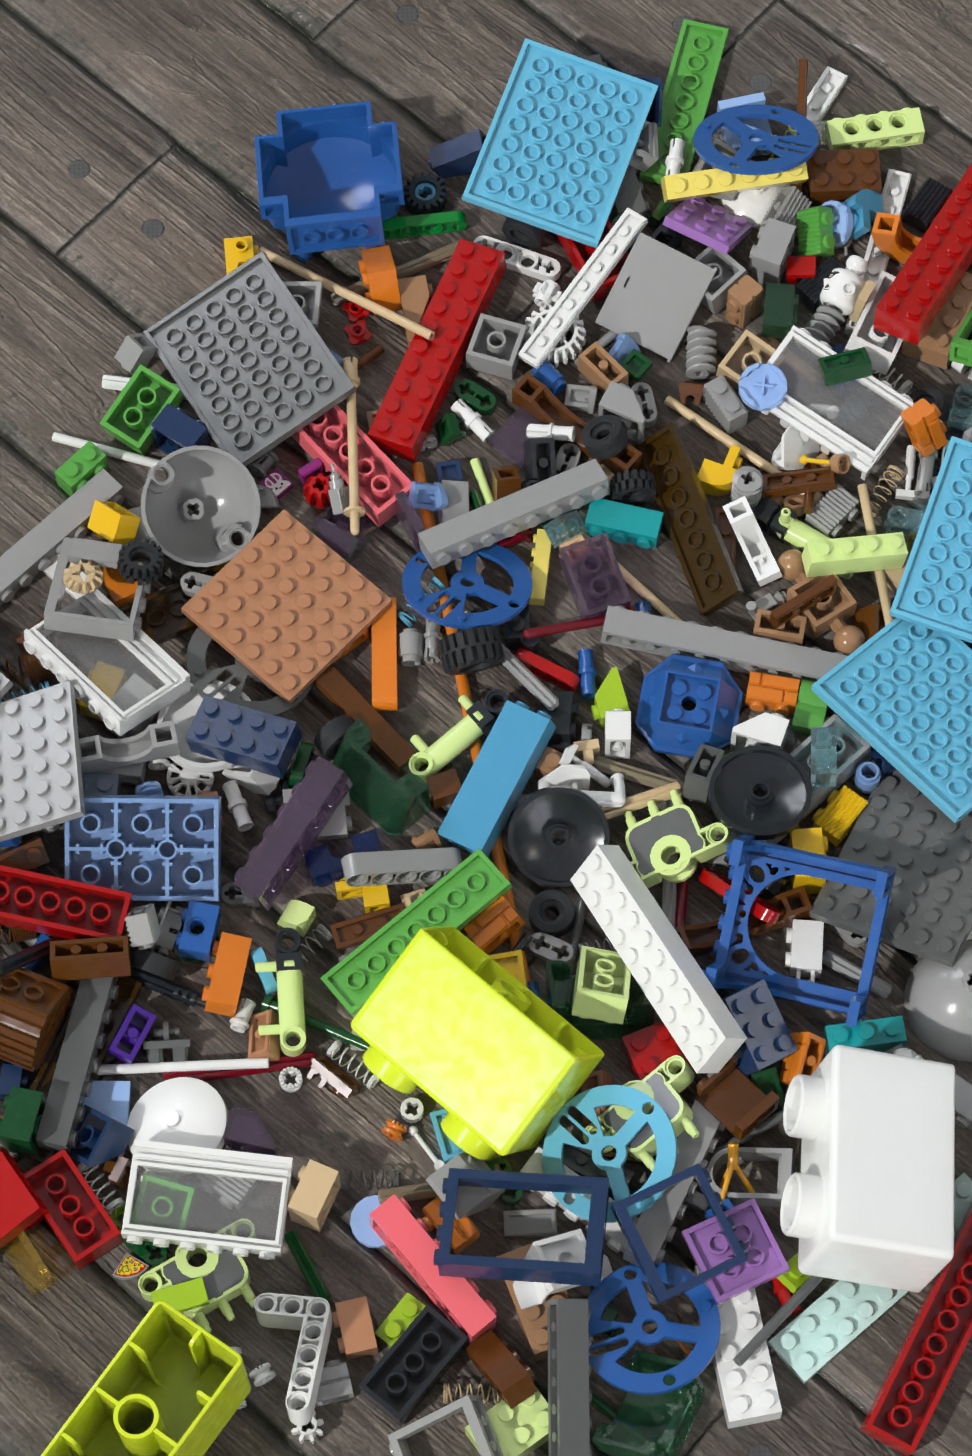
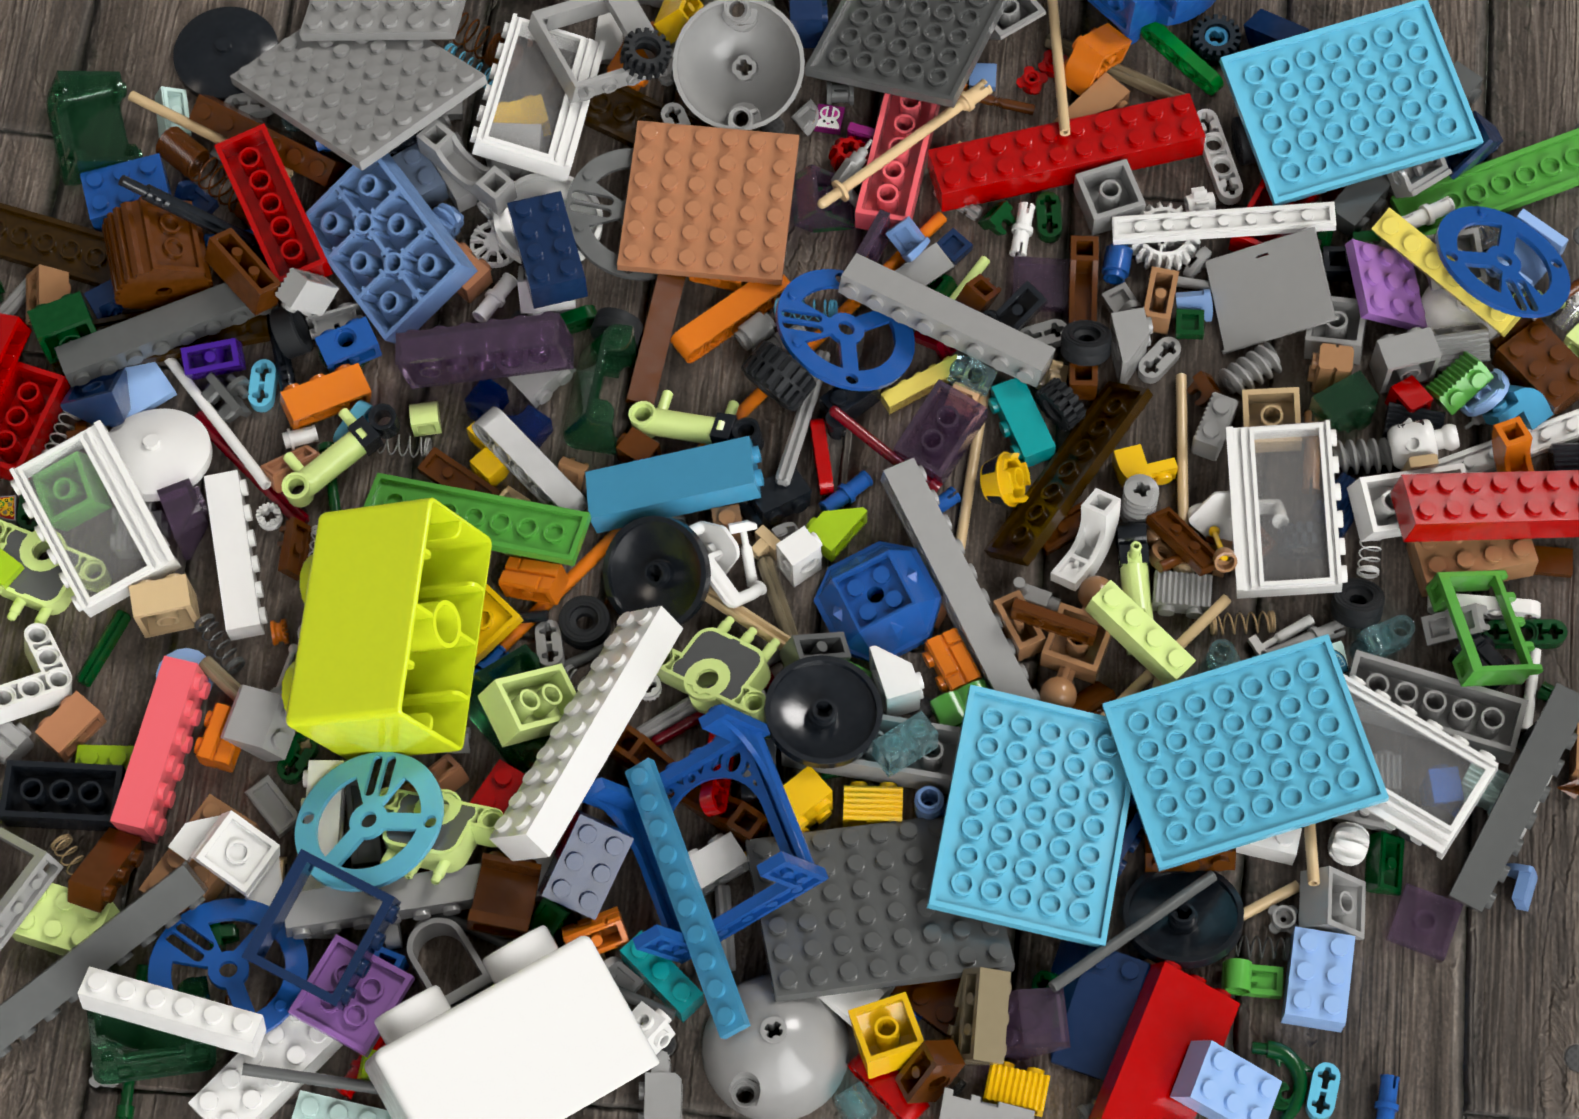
camera: 55 degrees right, 0 degrees up
(75, 583) = (594, 29): tan gear -> none
(180, 1011) = (257, 385): none -> medium azure beam
(307, 1123) = (234, 555): none -> white brick
(525, 1270) = (266, 858): dark blue window -> none
(562, 433) = (1060, 299): white axle -> none
(590, 328) = (1199, 264): none -> light grey tile
(662, 563) = (1005, 479): none -> yellow cone
(664, 1379) = (172, 1011): none -> white brick
(733, 1151) = (442, 940): light orange plant -> none
(762, 386) = (1244, 437): light blue tile -> none
(831, 974) = (687, 899): none -> dark azure plate
(845, 366) = (1325, 493): dark green slope -> none
(924, 427) = (1328, 609): orange brick -> none

